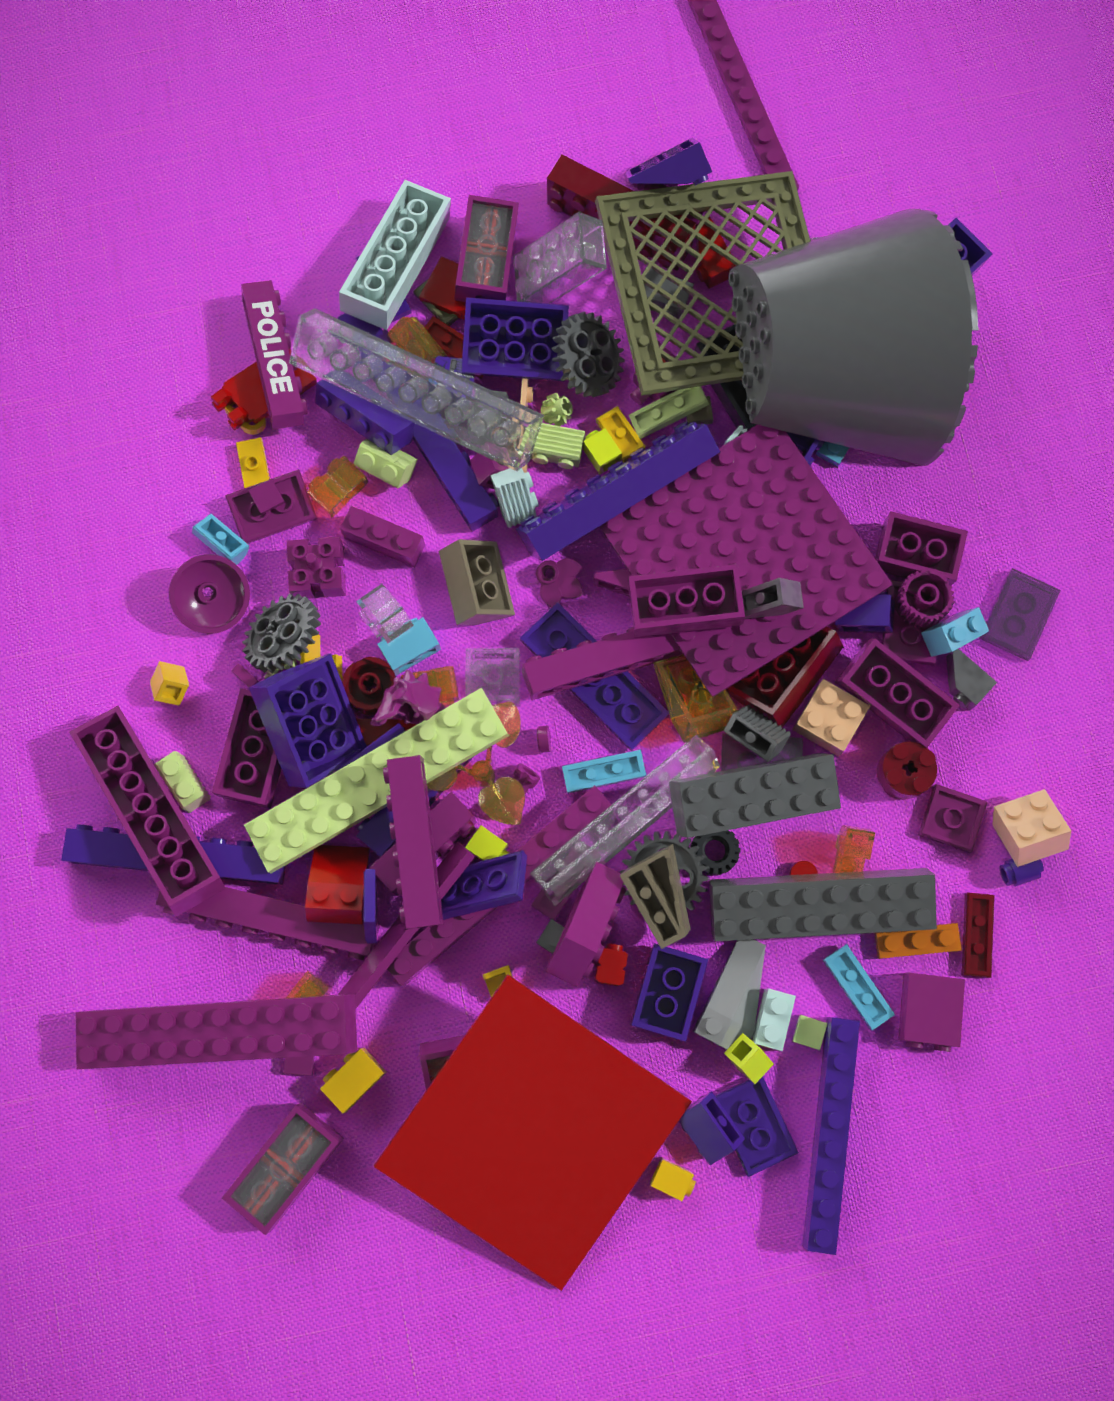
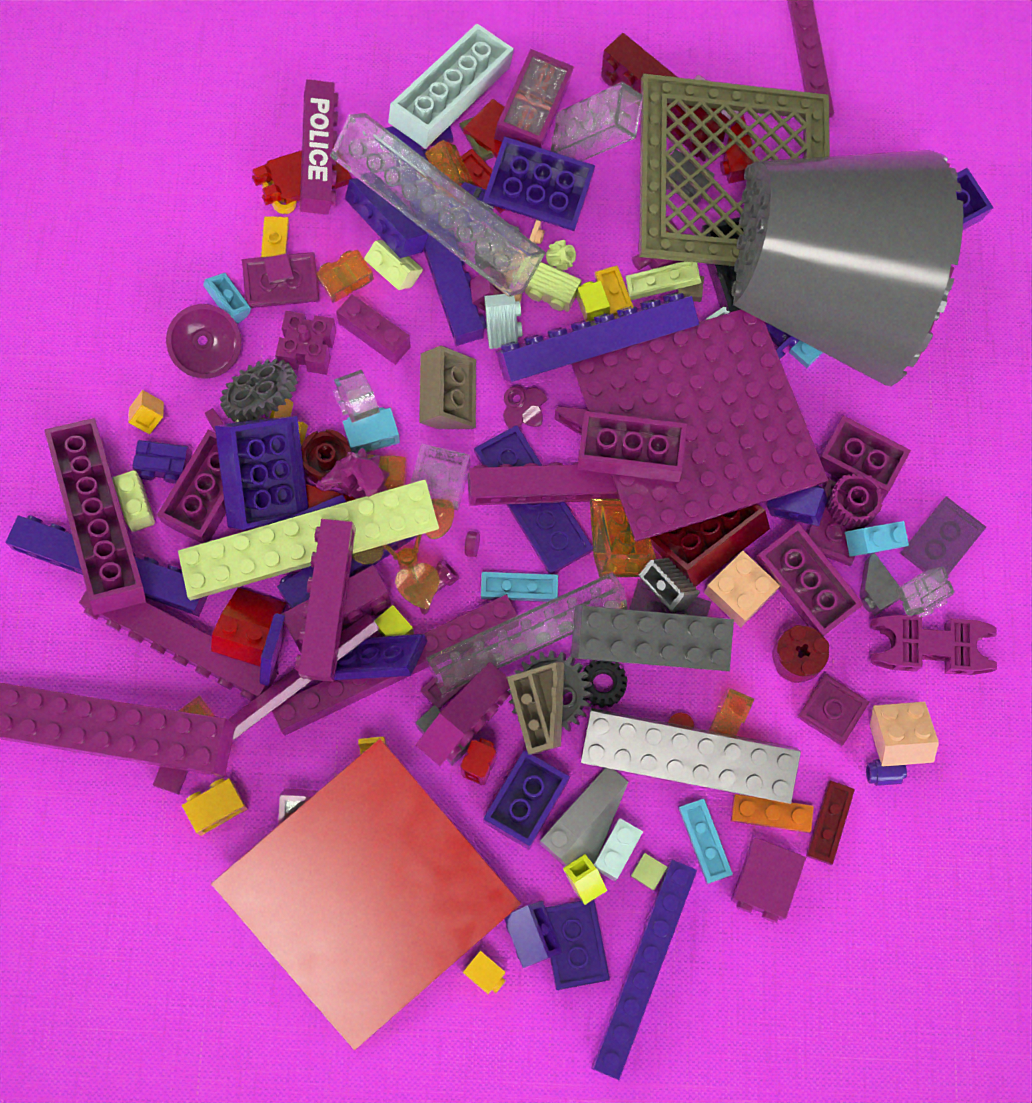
camera: 10 degrees right, 5 degrees down
(199, 732) = (160, 460): none -> dark purple brick
(282, 1168) = (128, 869): clear brick -> none
(588, 354) = (602, 212): dark grey gear -> none
(679, 165) = (724, 65): dark purple slope -> none
(772, 598) = (711, 464): flat silver slope -> none
(1015, 731) = (913, 644): none -> magenta piece
(1017, 675) = (925, 592): none -> clear brick

